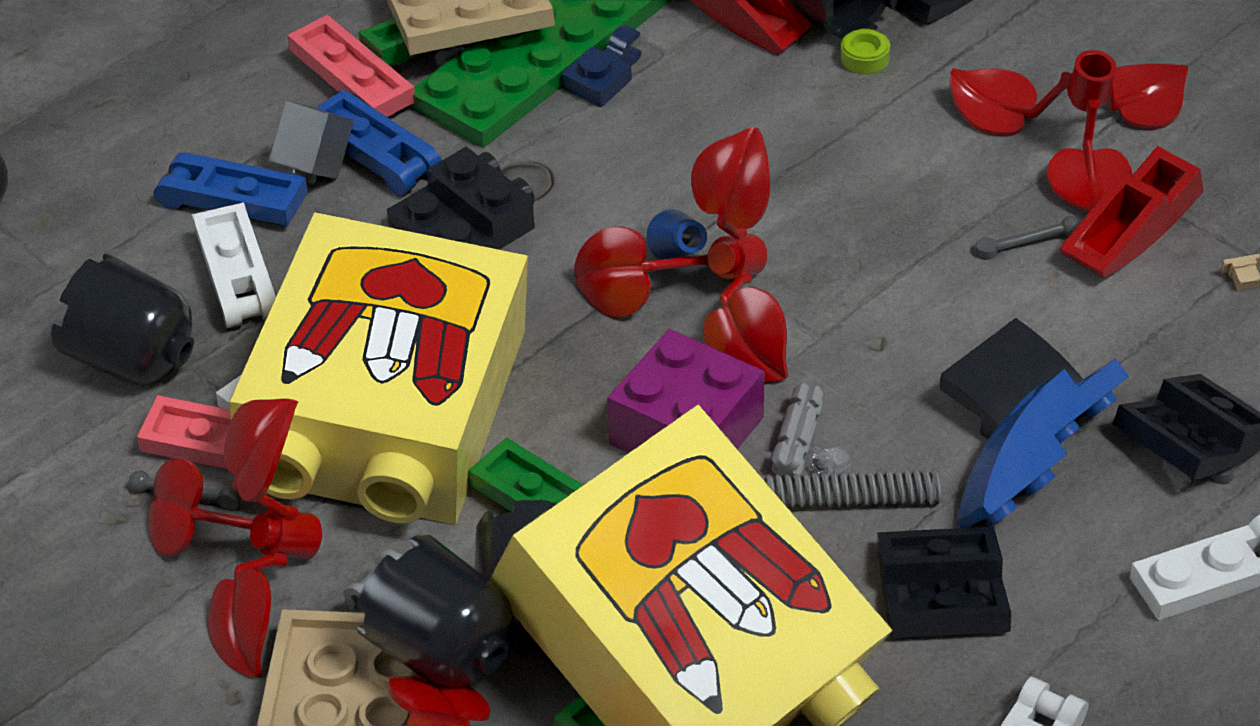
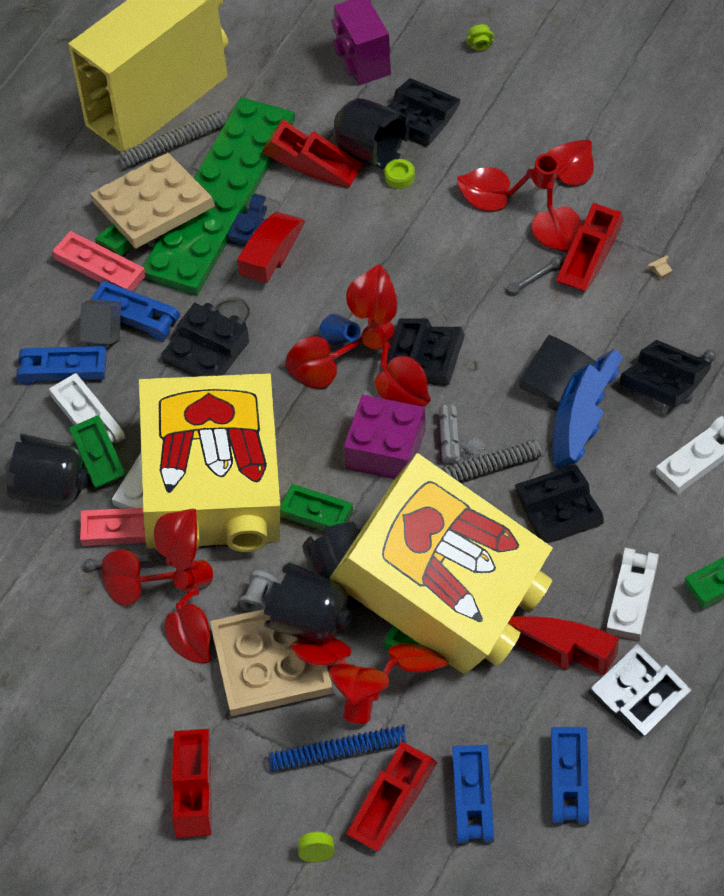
camera: 15 degrees left, 10 degrees up
(220, 314) = (97, 451): none -> green plate
(617, 101) = (269, 246): none -> red slope
(815, 300) = (431, 346): none -> black slope

